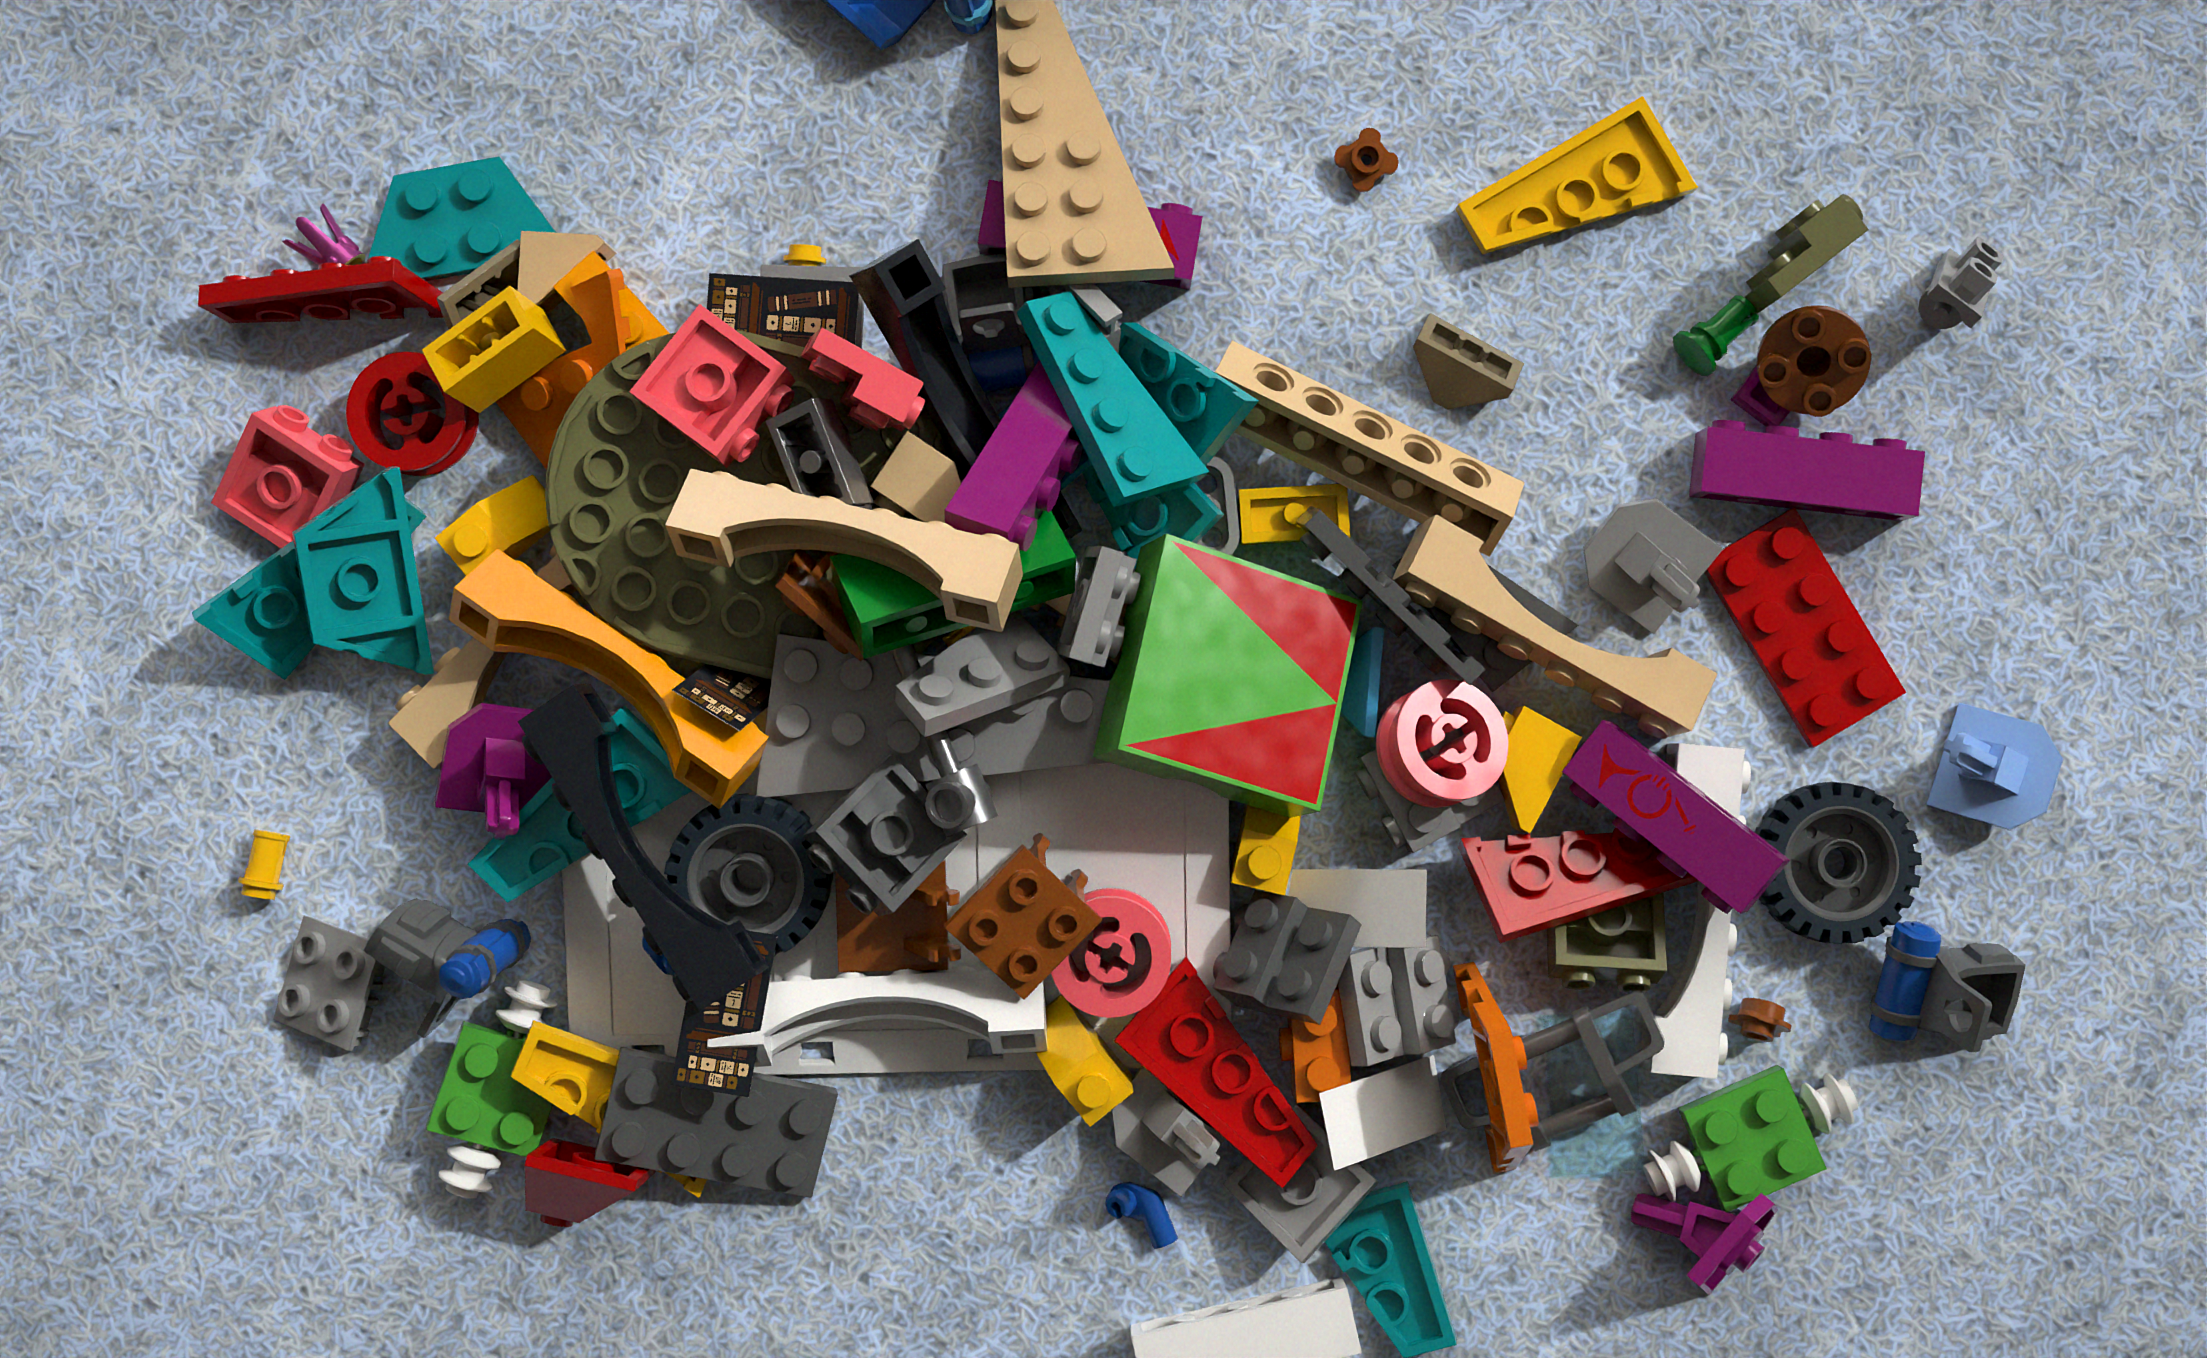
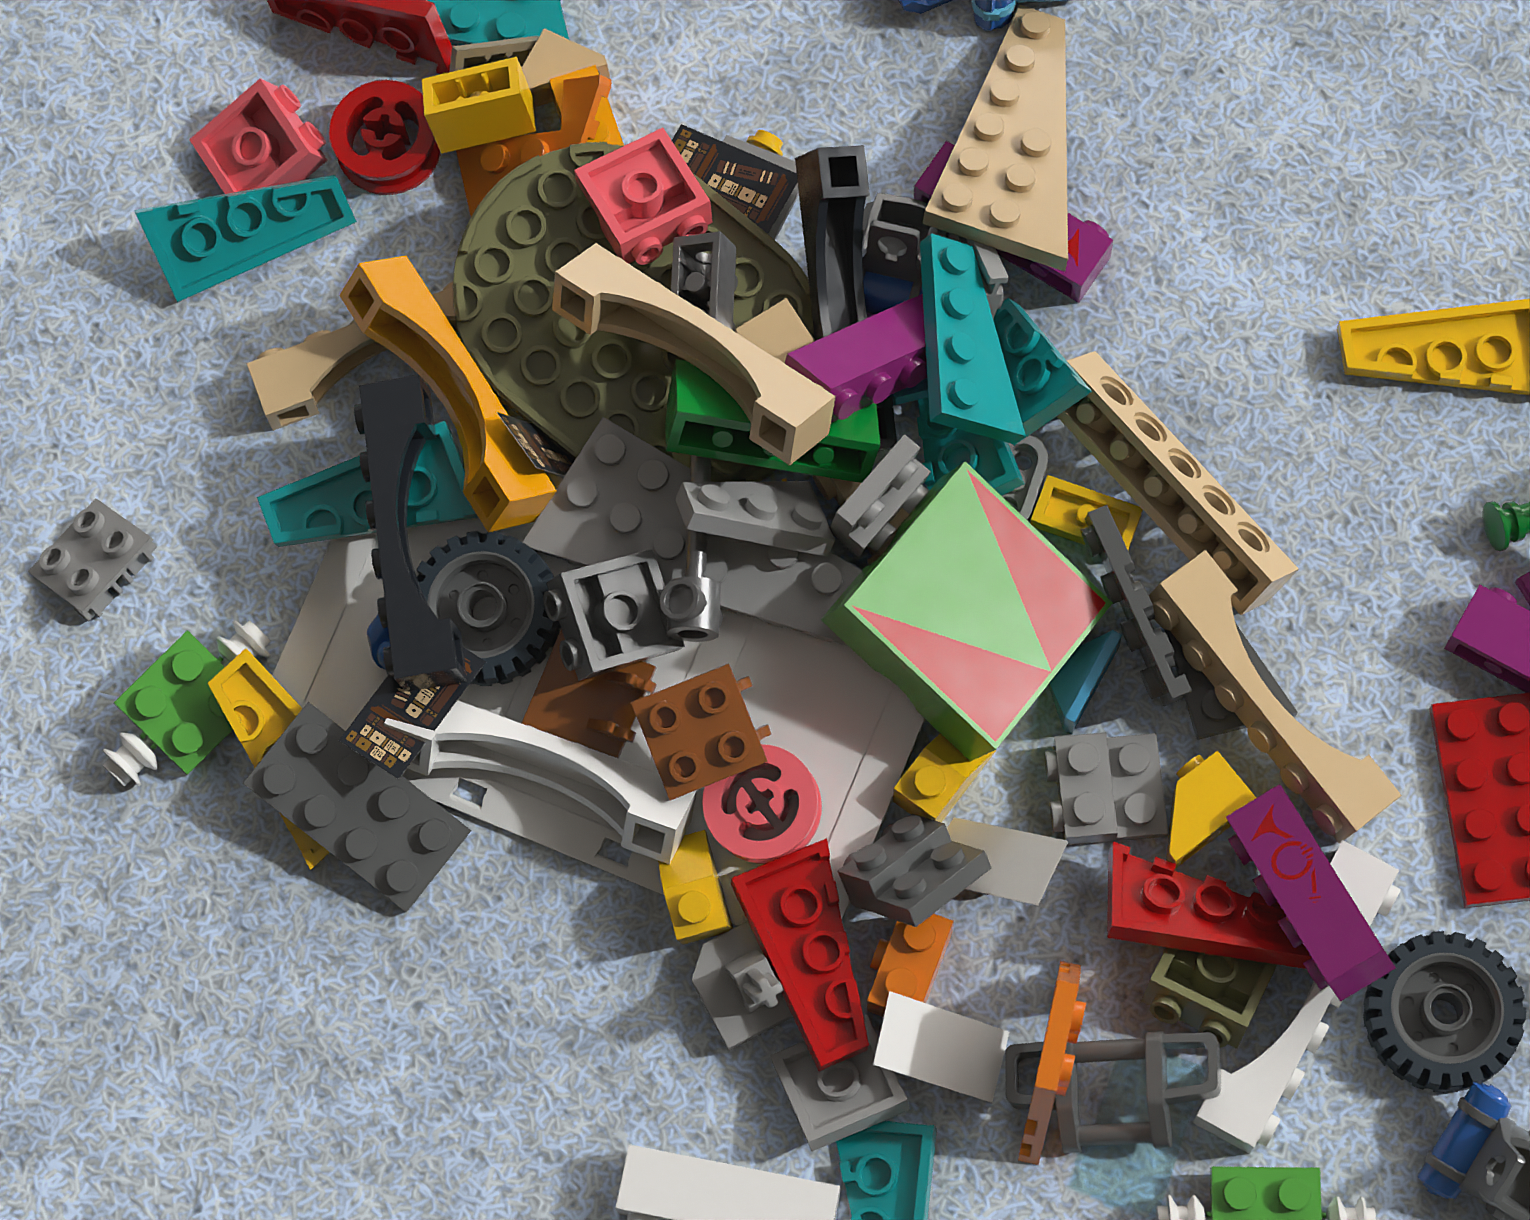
camera: 30 degrees right, 15 degrees down
(264, 865) = (86, 441): yellow pin -> none
(364, 576) = (284, 243): teal wing -> none
(443, 955) = (199, 571): dark grey piece -> none
(489, 767) = (312, 429): magenta piece -> none
(504, 521) = (428, 246): yellow slope -> none
(571, 1185) = (217, 806): red slope -> none
(812, 594) = (645, 387): dark orange plate -> none
(876, 390) = (777, 252): coral plate -> none
(1142, 1205) = (691, 1048): blue arm -> none
(1369, 145) = (1266, 267): dark orange plate -> none
(1396, 1002) = (995, 955): light grey plate -> none
(1419, 723) = (1132, 719): coral wheel -> none
(1462, 367) = (1285, 457): dark tan slope -> none
(1648, 561) = (1381, 680): light grey piece -> none
(1760, 1019) = (1318, 1122): dark orange plate -> none

